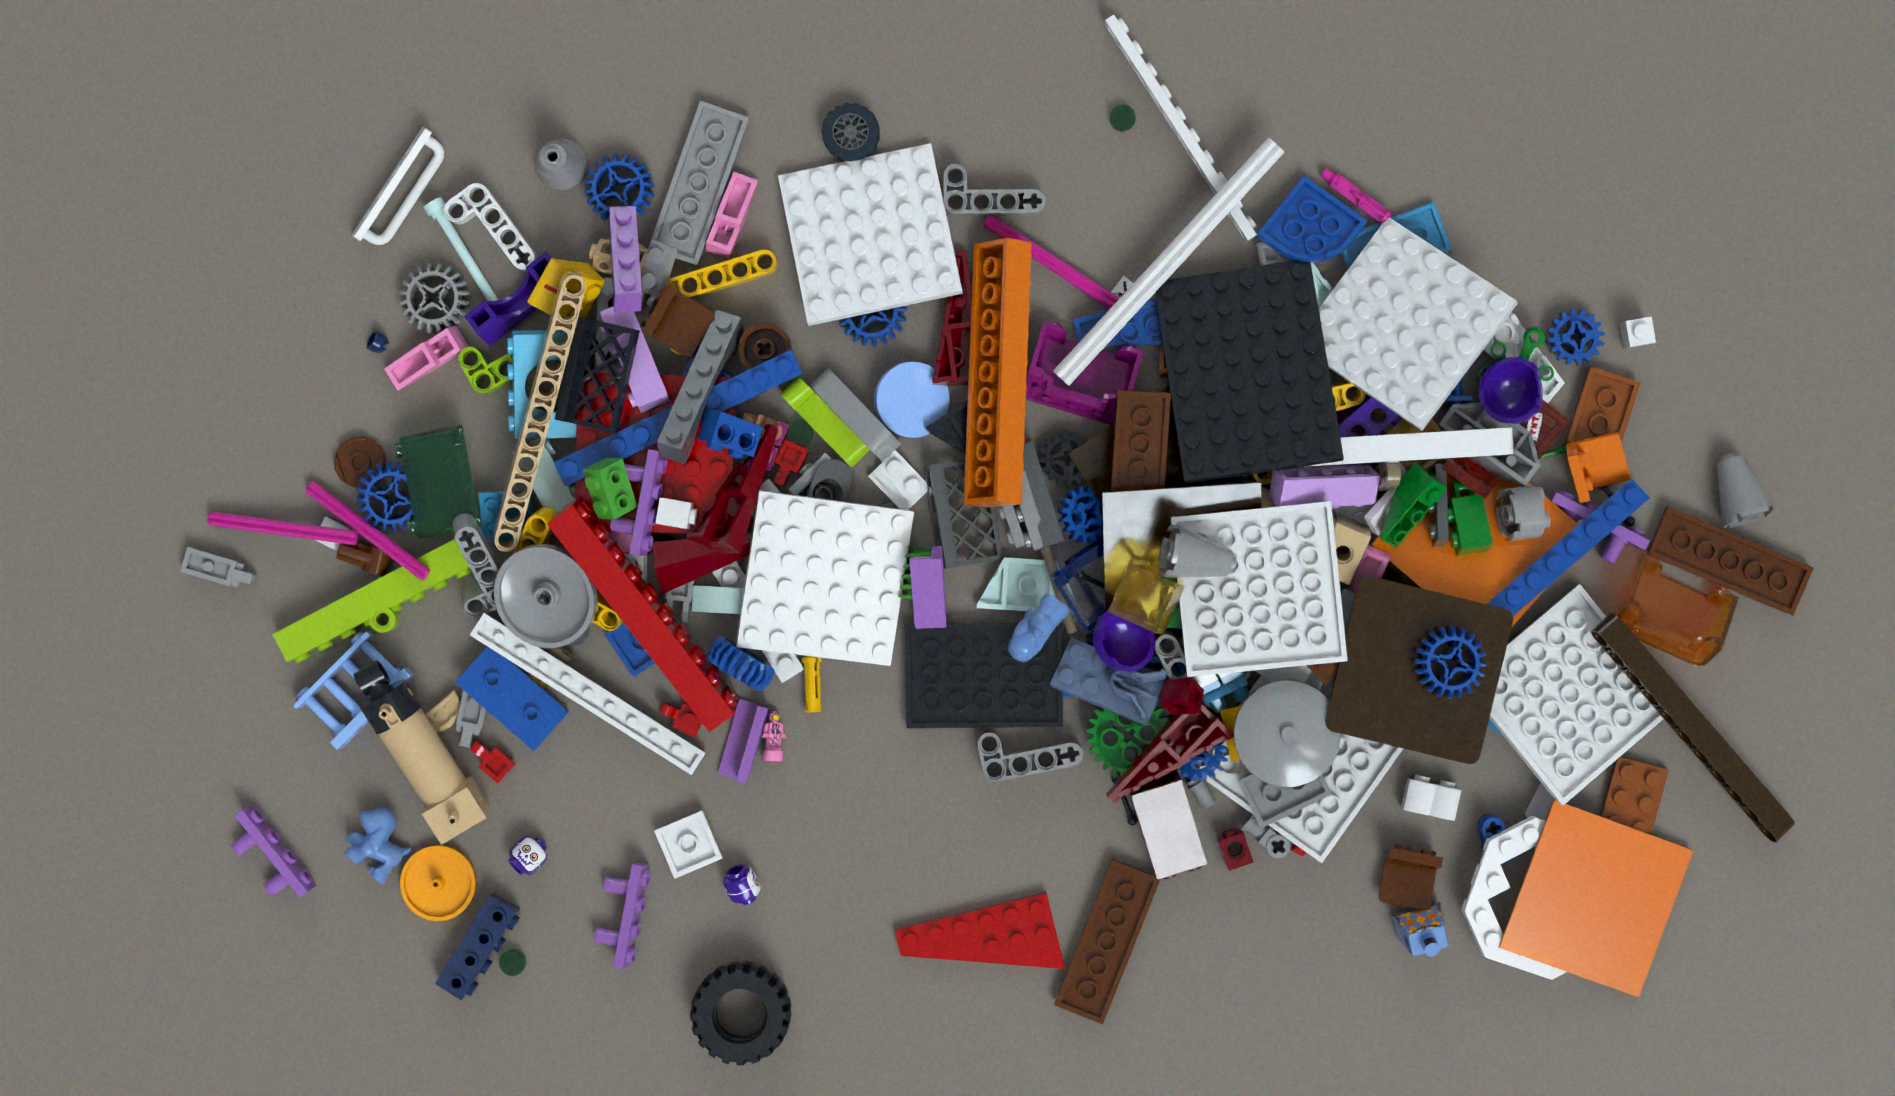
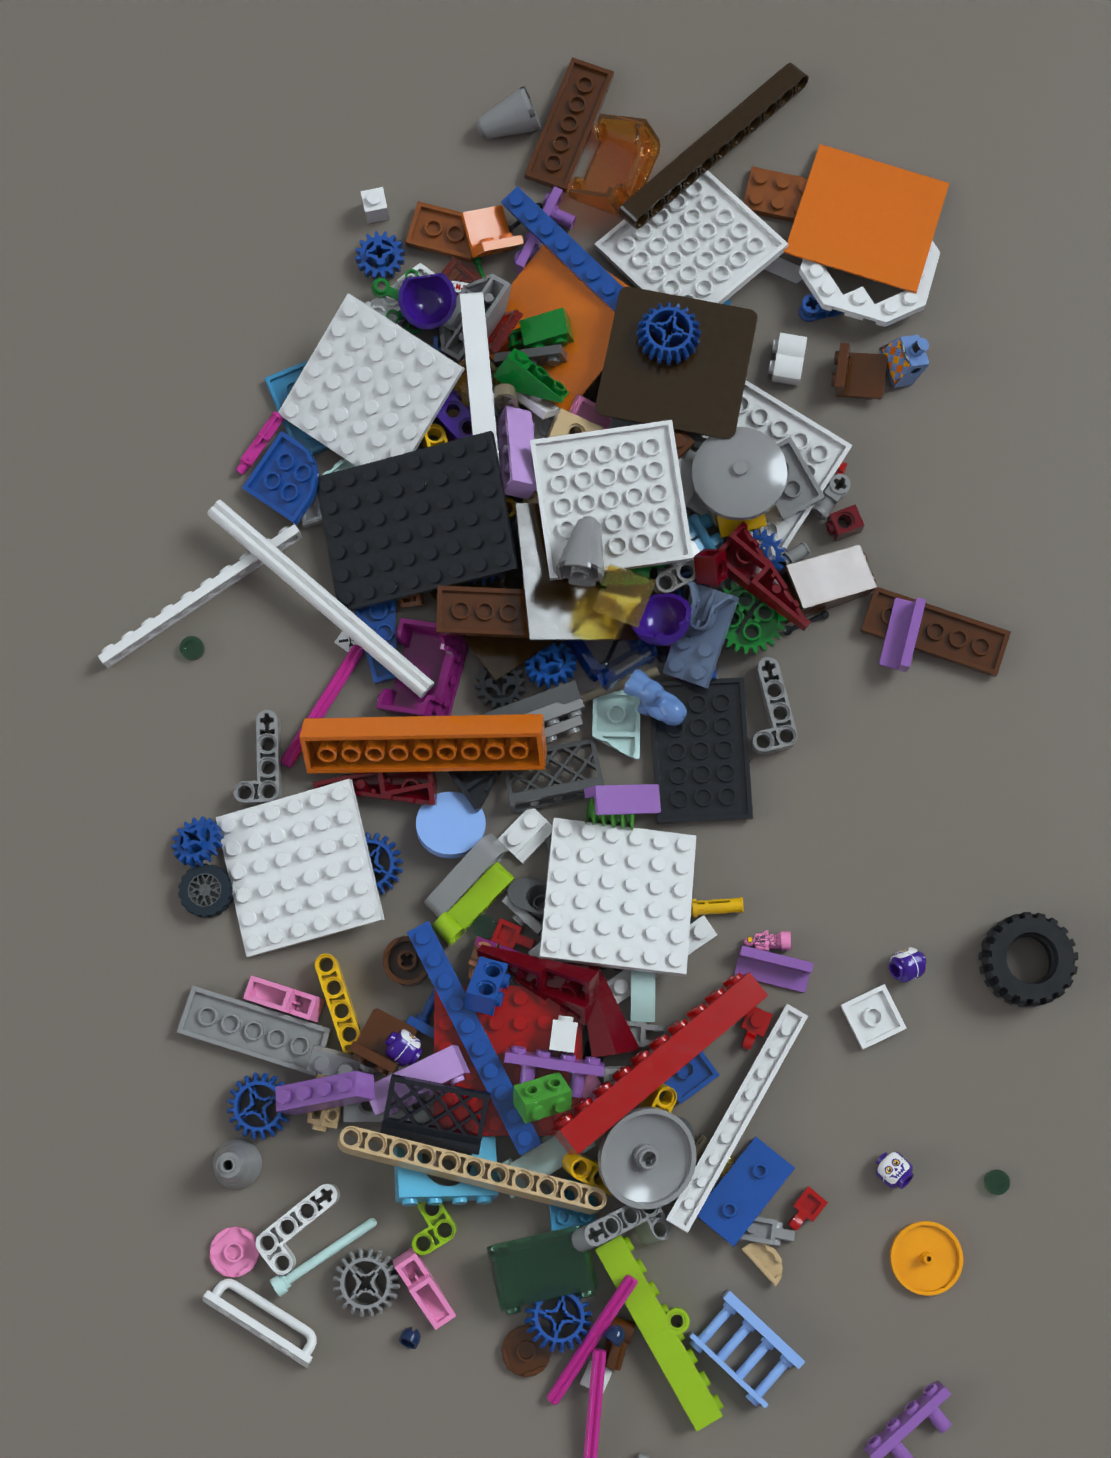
camera: 90 degrees left, 10 degrees down
(370, 554) = (615, 1335): none -> dark blue hinge
(378, 826) = (876, 1318): medium blue animal -> none
(394, 713) = (769, 1301): tan piece -> none
(471, 159) = (234, 1252): none -> bright pink tile
(477, 946) = (984, 1215): dark blue brick -> none
(496, 318) = (350, 1177): dark purple arch -> none
(547, 286) = (354, 1167): yellow slope -> none
(630, 925) = (920, 1067): medium lavender plate -> none
(669, 342) = (403, 1048): none -> dark purple head
(683, 421) = (456, 1022): dark grey arch -> none
(740, 663) = (701, 972): blue gear -> none
(891, 118) = (197, 841): none -> blue gear
(1003, 933) = (935, 727): red wing -> none
(1103, 903) = (902, 634): none -> medium lavender panel
(1521, 513) = (534, 287): light grey brick -> none

